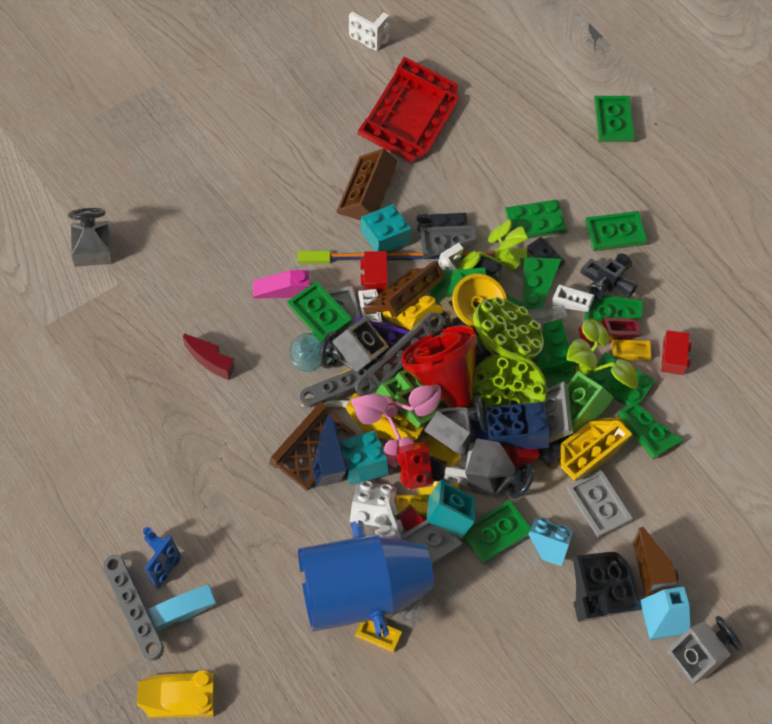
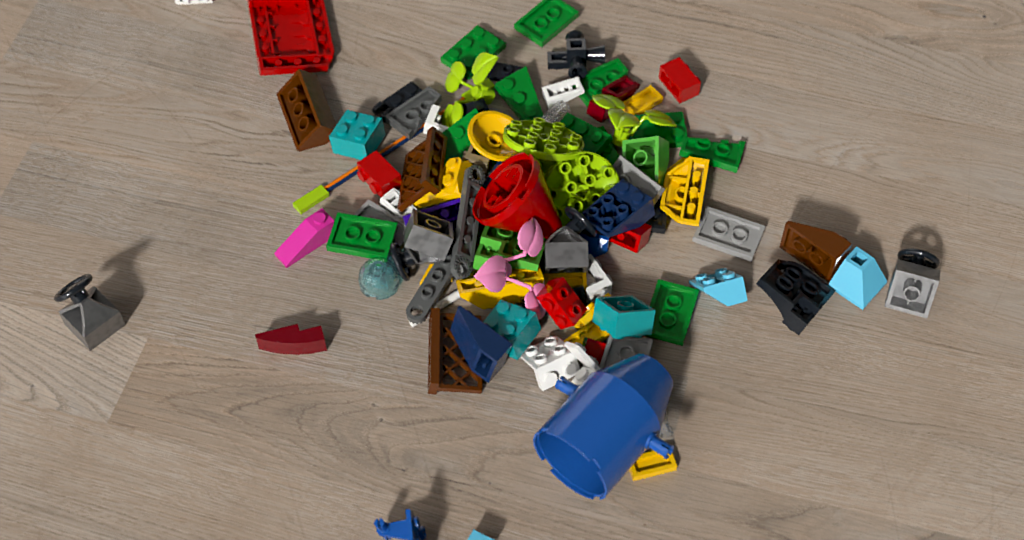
camera: 35 degrees left, 5 degrees down
(492, 469) = (630, 260): flat silver piece -> none

